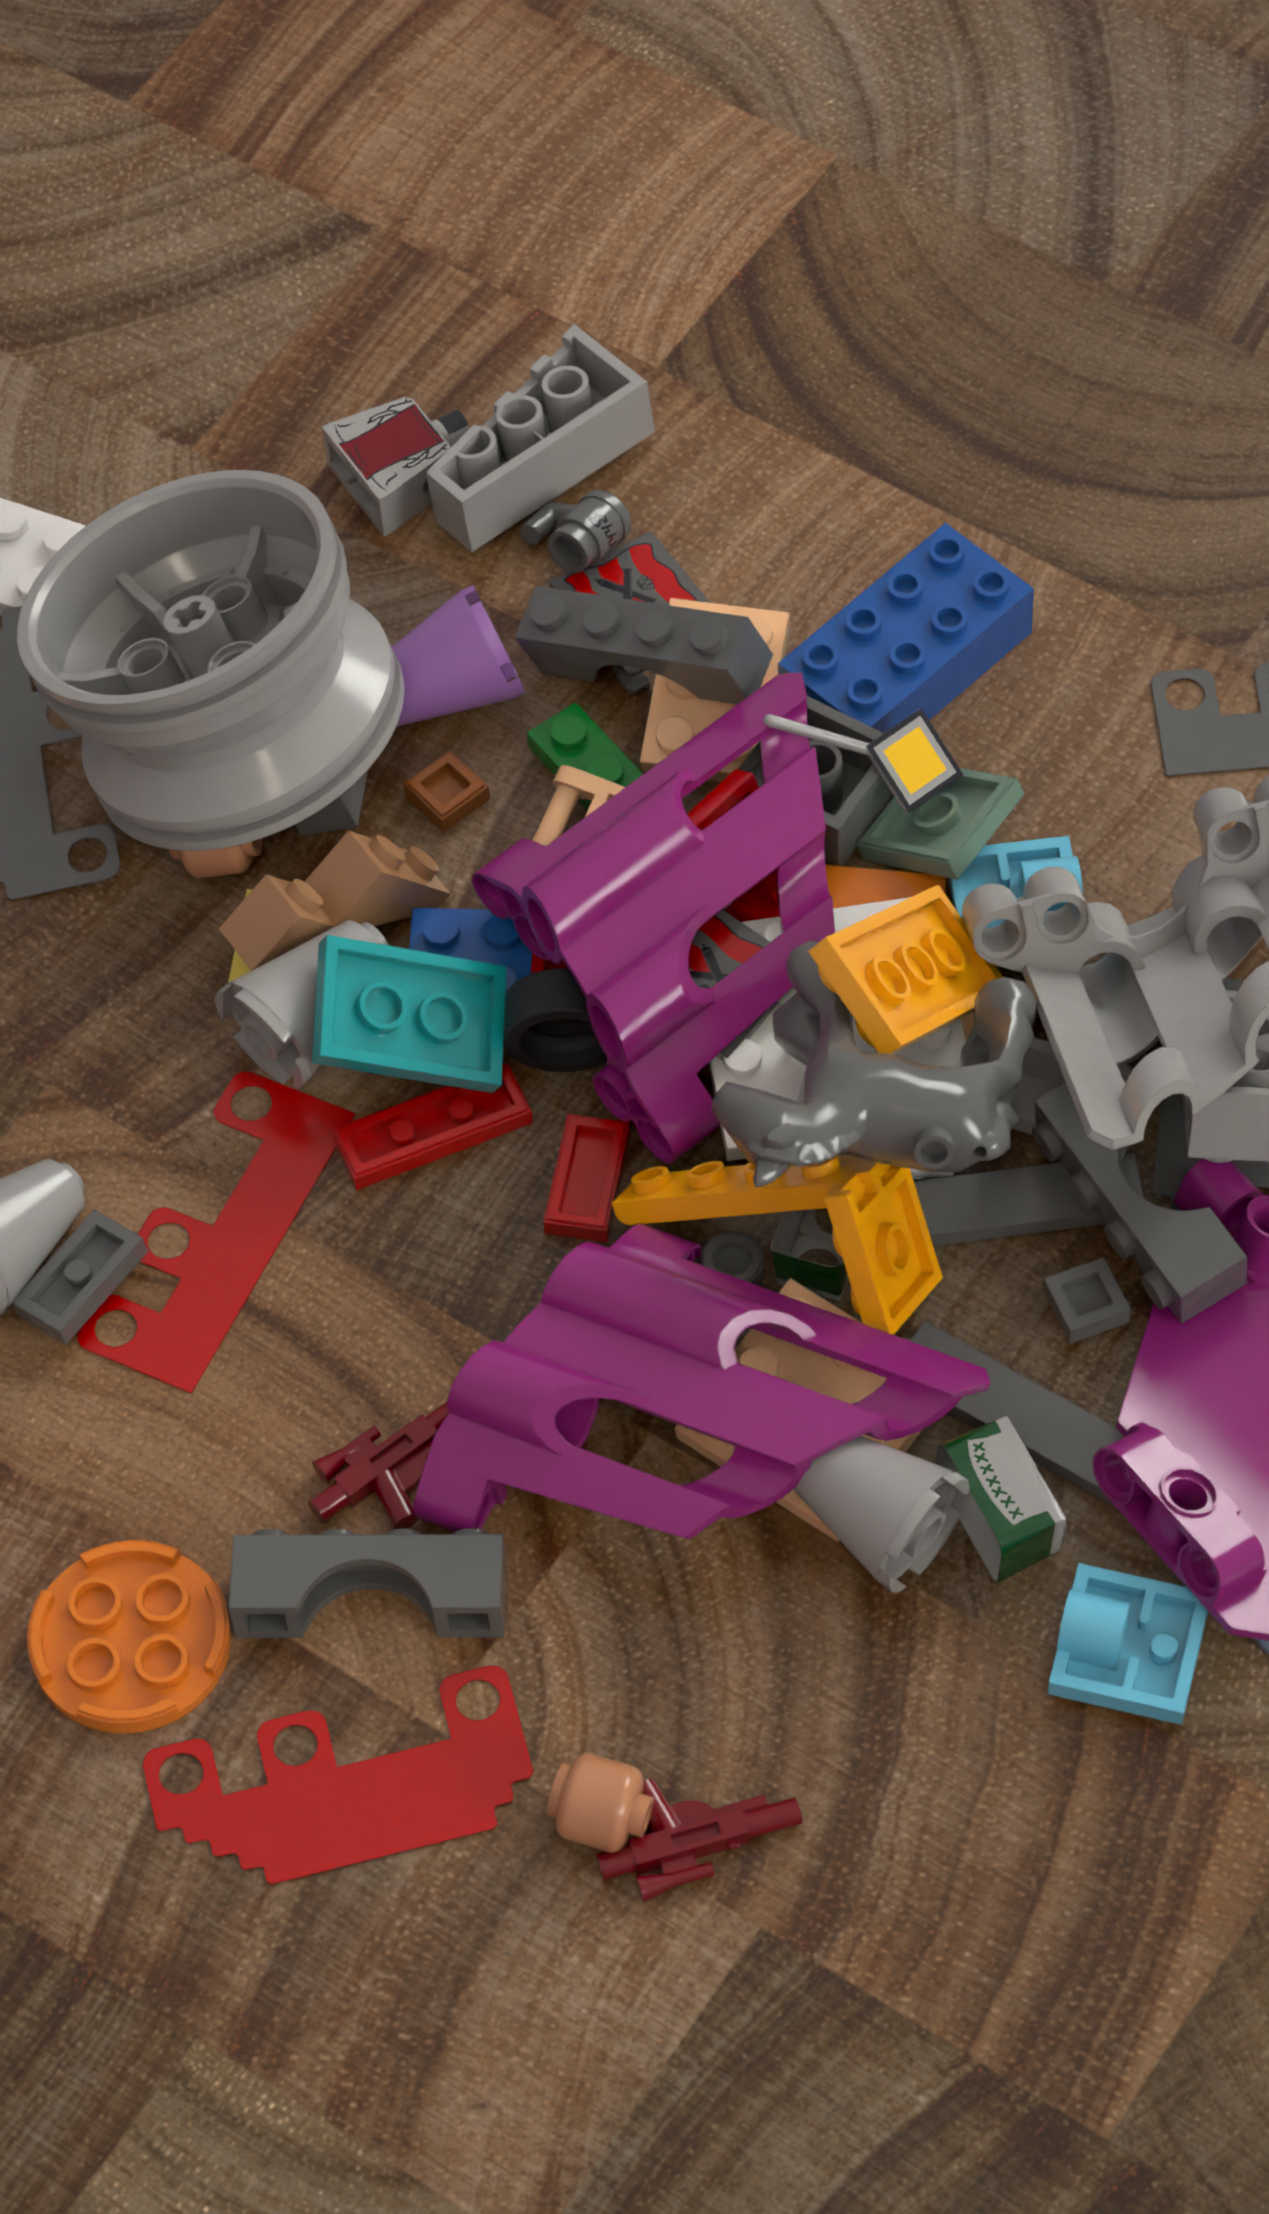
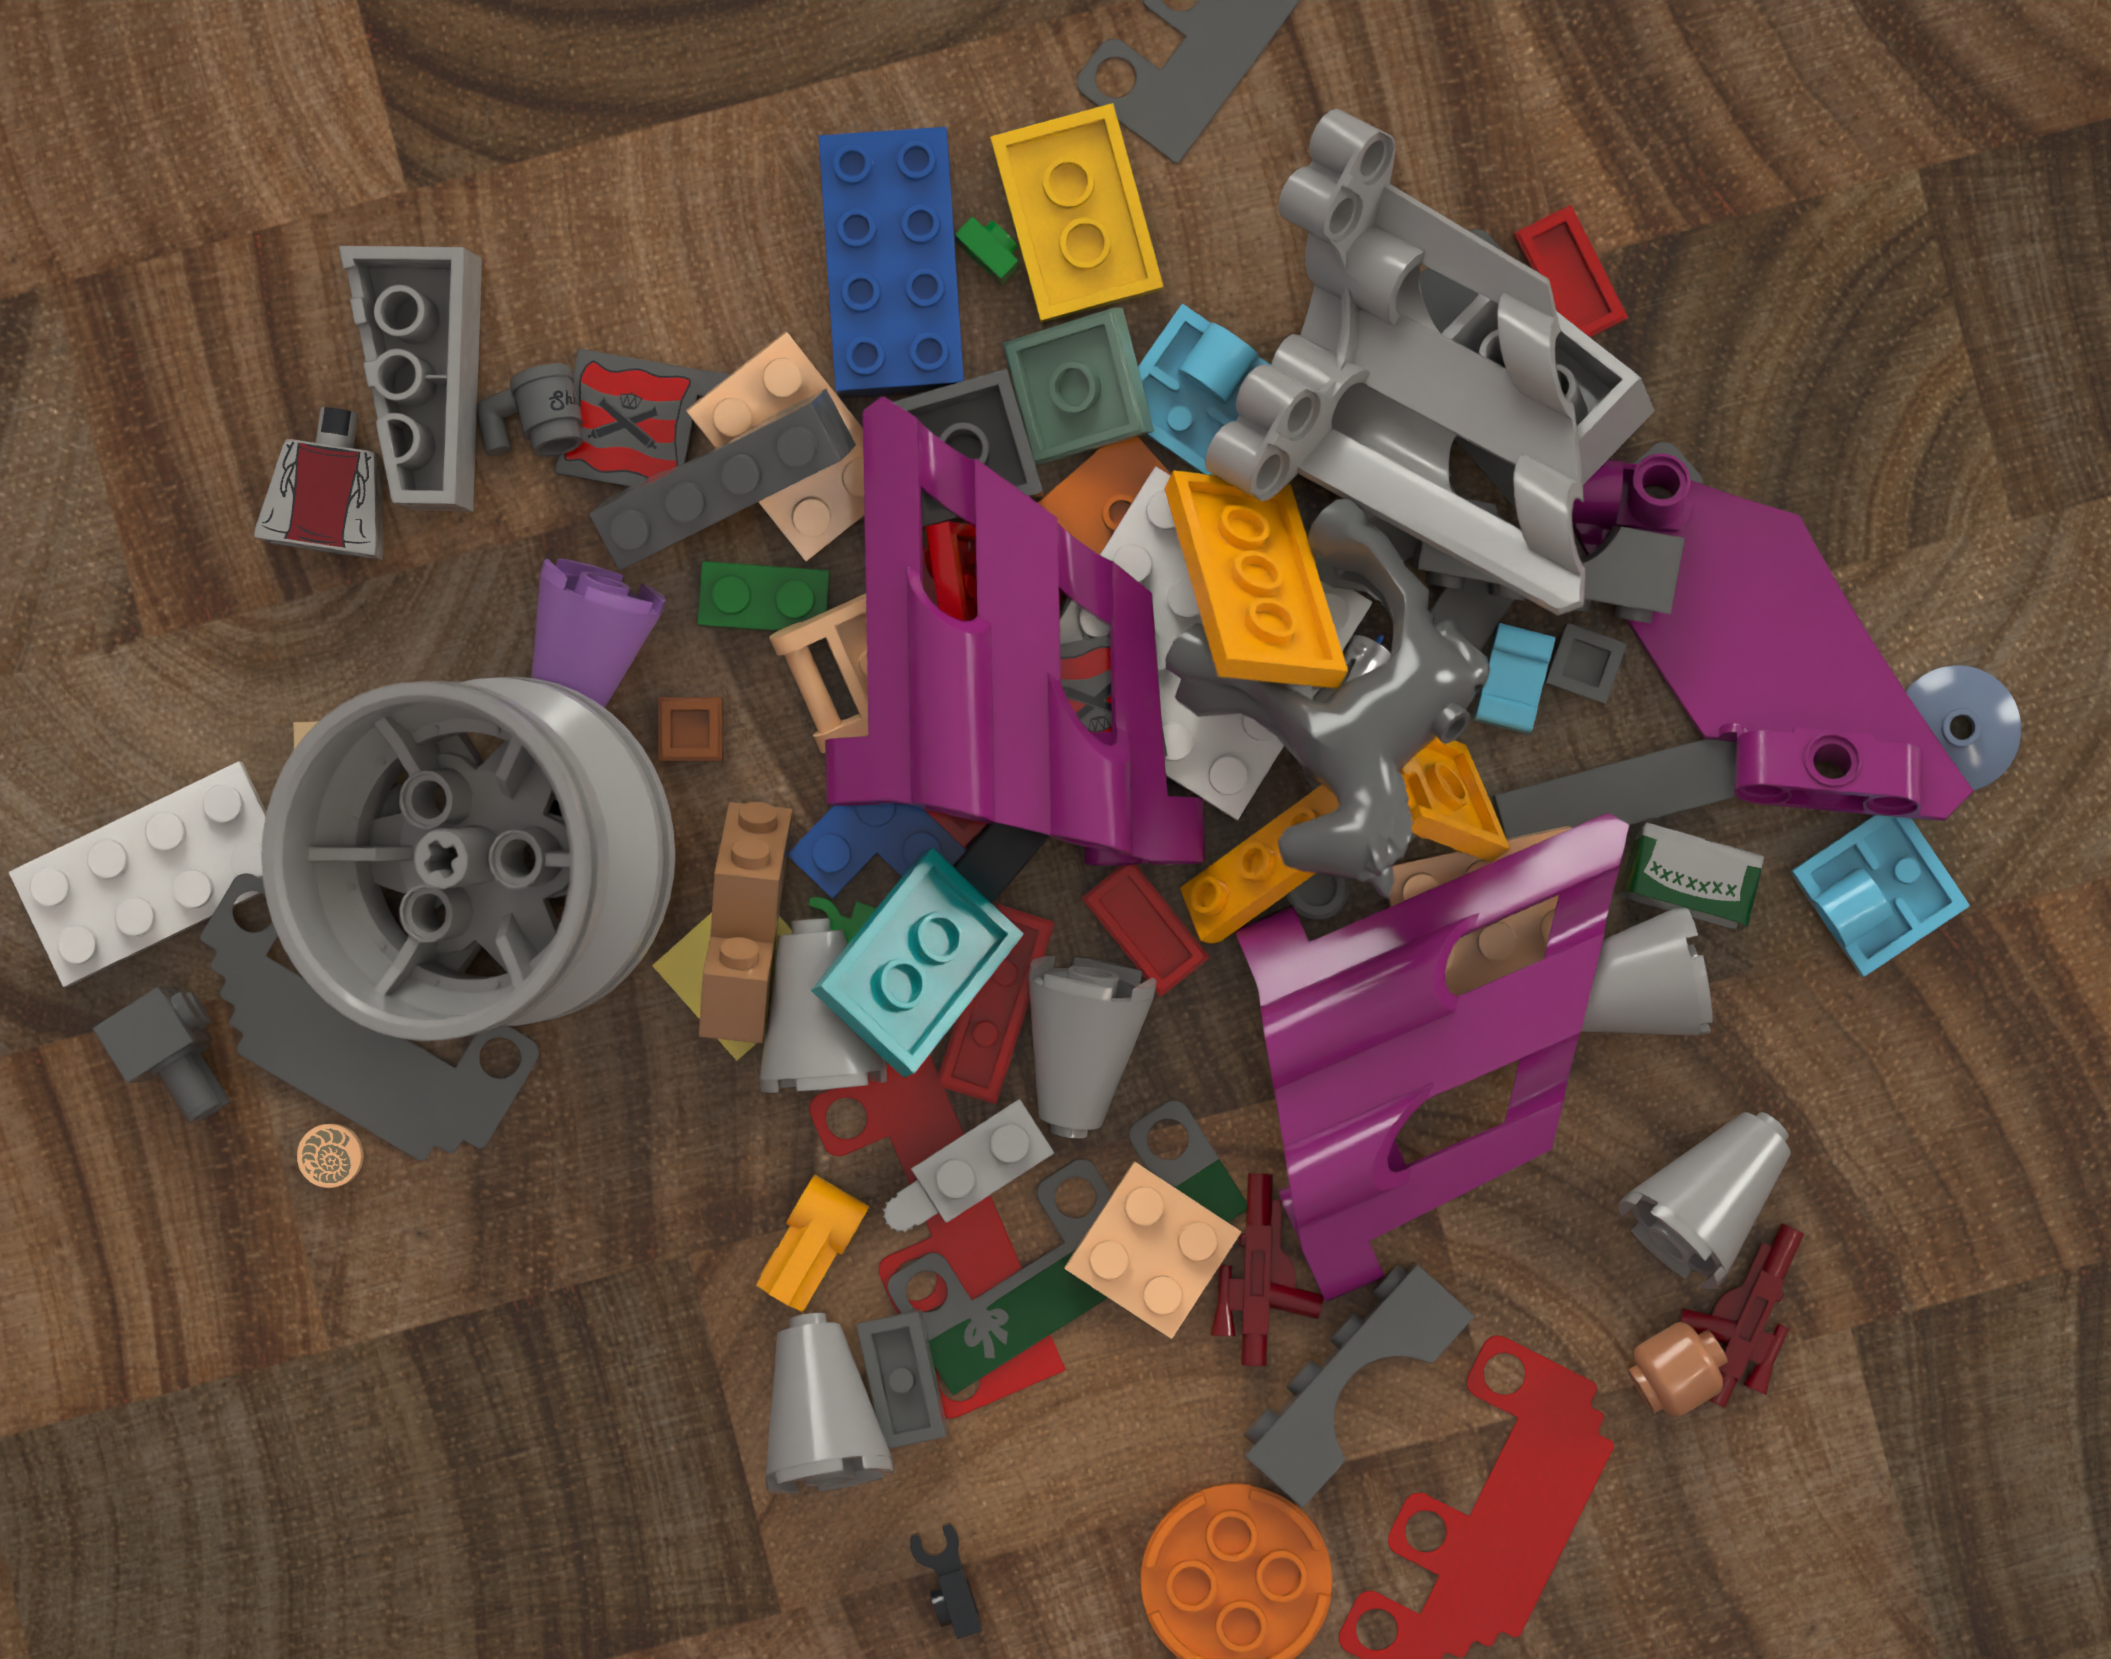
camera: 50 degrees left, 30 degrees up
(149, 1136) = (817, 1232): none -> light orange piece
(287, 1190) = (970, 1169): none -> light grey hinge
(298, 1345) = (984, 1333): none -> piece
(341, 1369) = (1152, 1249): none -> light nougat plate
(458, 1183) = (1083, 1037): none -> light grey cone
(762, 1707) = (1710, 1197): none -> light grey cone
(906, 756) = (1024, 379): piece -> none
(981, 698) = (989, 248): none -> green plate
(1014, 1265) = (1515, 678): none -> medium azure piece
(1065, 730) = (1076, 213): none -> yellow plate

